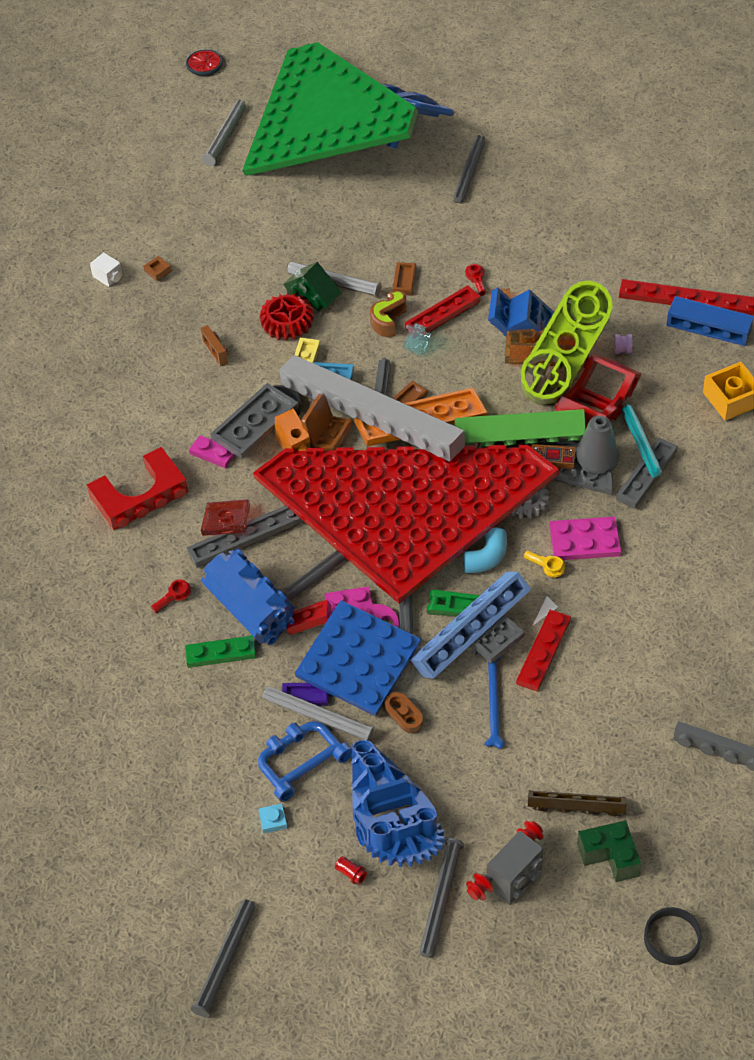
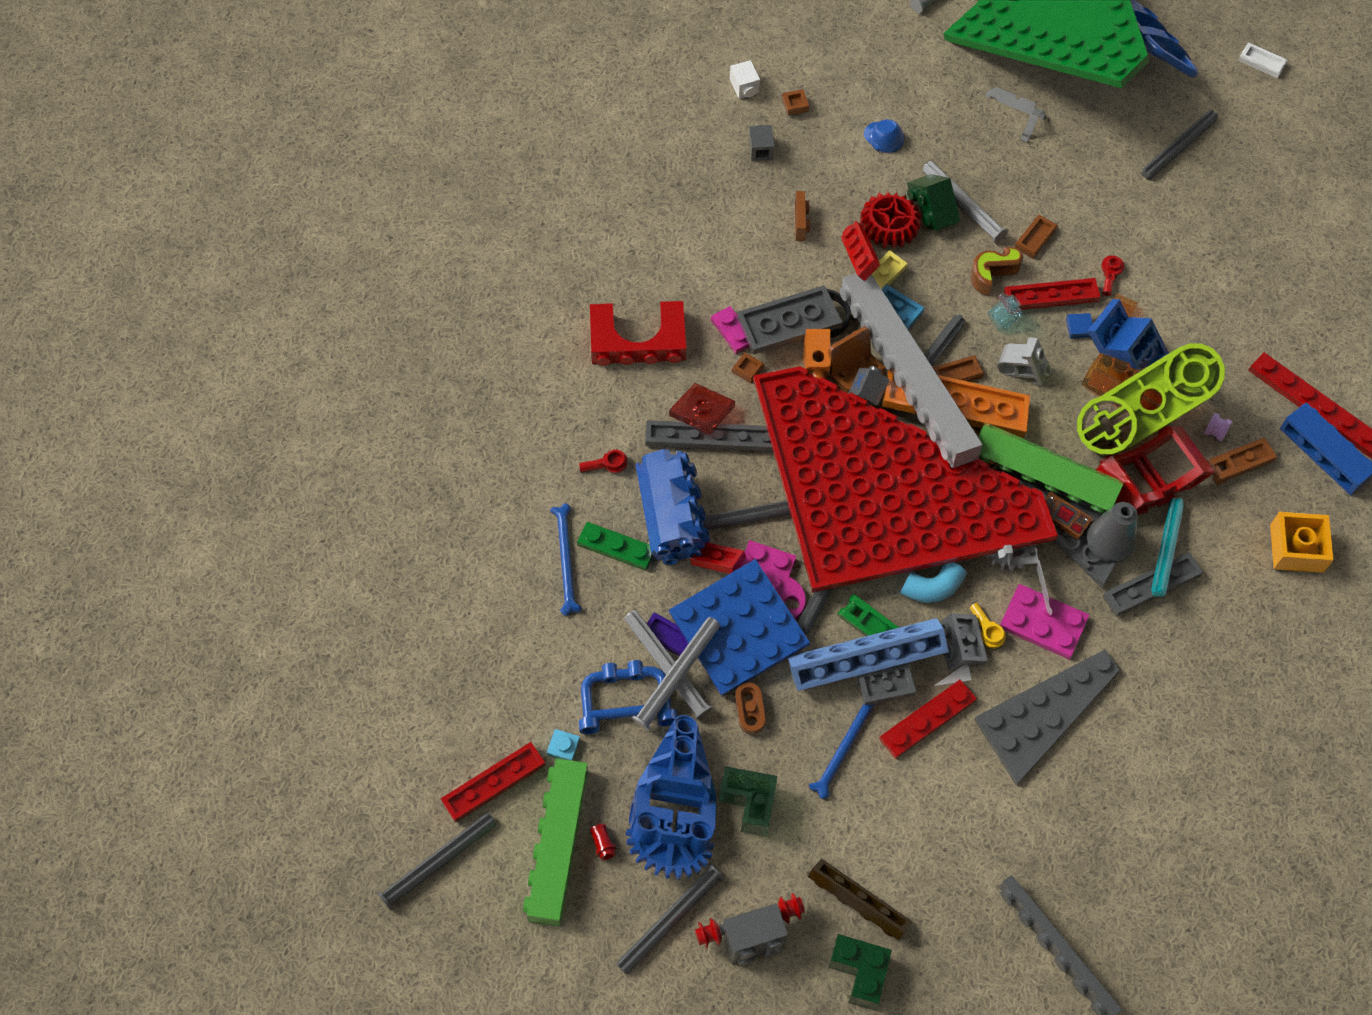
camera: 25 degrees right, 10 degrees up
(149, 308) = (761, 142): none -> dark grey brick
(210, 713) = (569, 604): none -> blue piece
(232, 874) = (493, 782): none -> red plate
(242, 473) = (747, 367): none -> dark orange tile
(243, 261) = (885, 136): none -> blue hat
(279, 345) = (860, 250): none -> red plate
(315, 890) = (557, 842): none -> bright green brick
(331, 715) = (676, 673): none -> light grey axle
(335, 193) = (1023, 105): none -> light grey piece
(347, 435) = (869, 384): none -> dark grey brick
(449, 769) = (754, 792): none -> clear green brick
(453, 365) = (1025, 361): none -> light grey pin
(477, 324) = (1079, 325): none -> blue tile
(492, 86) = (1262, 60): none -> white tile
(529, 497) = (1023, 561): none -> light grey piece
(539, 581) = (963, 641): none -> dark grey bracket
(624, 606) = (1035, 719): none -> dark grey wing
(655, 358) = (1241, 460): none -> dark orange plate

